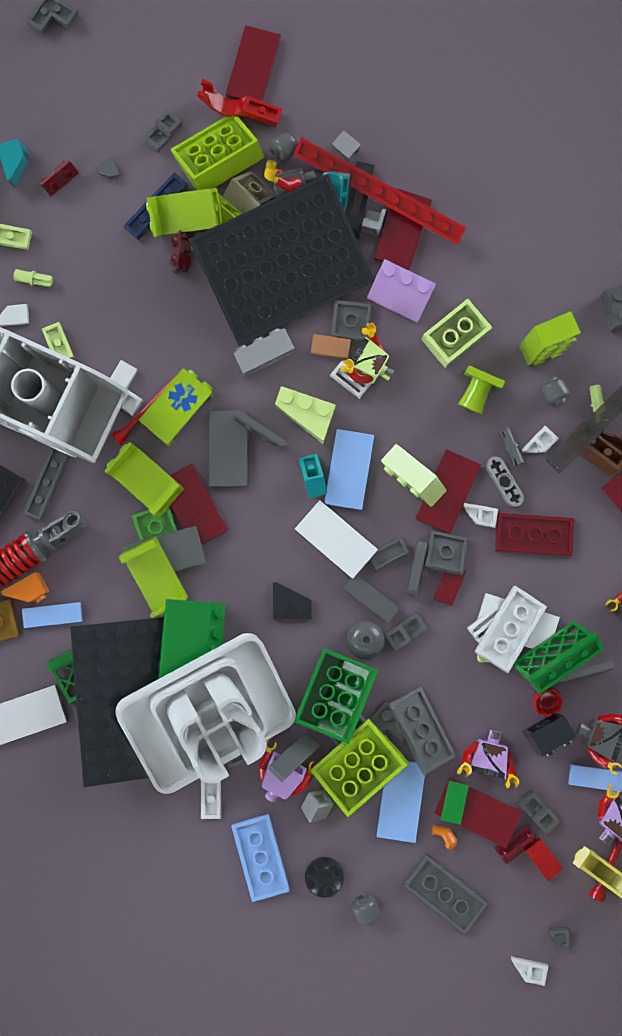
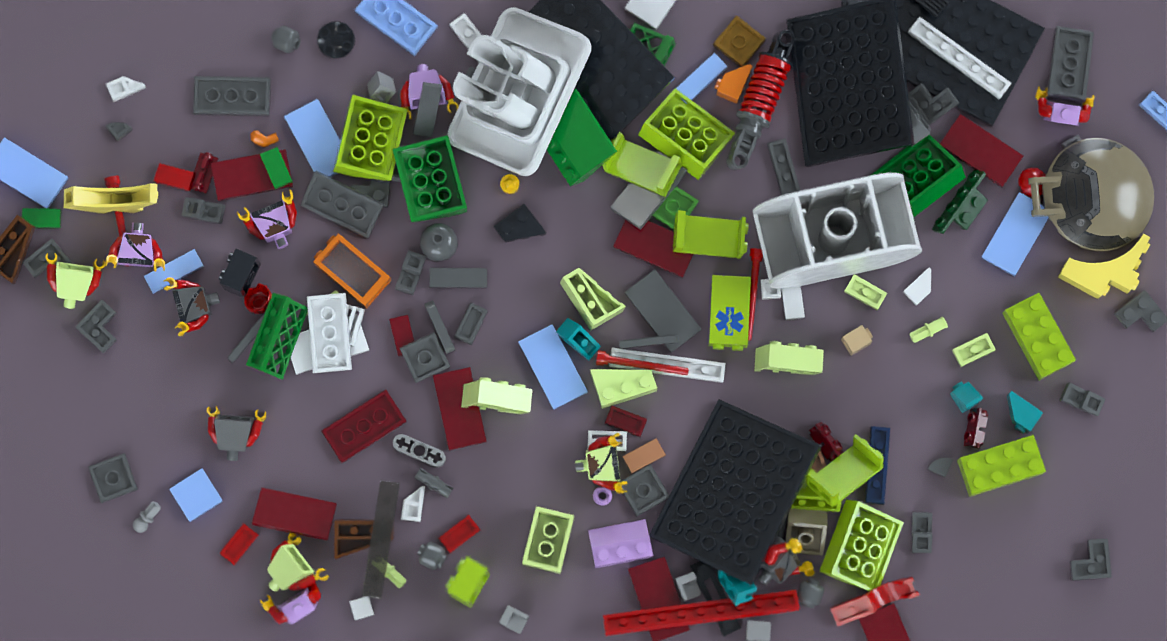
camera: 145 degrees right, 5 degrees down
(45, 201) = (965, 396): none -> teal slope
(61, 132) = (1001, 465): none -> lime brick
(94, 310) = (857, 339): none -> tan brick
(98, 576) = (687, 133): none -> lime slope
(160, 334) = (789, 358): none -> yellowish green wedge
(257, 403) = (697, 368): none -> white tile
(264, 352) = (694, 409): light grey brick -> none
(272, 644) = (509, 184): none -> yellow tile
(279, 496) = (590, 300): none -> yellowish green wedge
(304, 443) = (603, 359): none -> red piece
(324, 383) = (626, 421): none -> dark red tile
(336, 539) = (521, 302): white tile -> none
(387, 334) = (602, 502): none -> lavender plate
(454, 668) = (351, 270): none -> window
(478, 389) = (497, 513): lime plant -> none
(482, 515) = (418, 410): white tile -> none
(520, 393) = (459, 534): none -> red tile
(526, 296) = (514, 619): none -> light grey panel

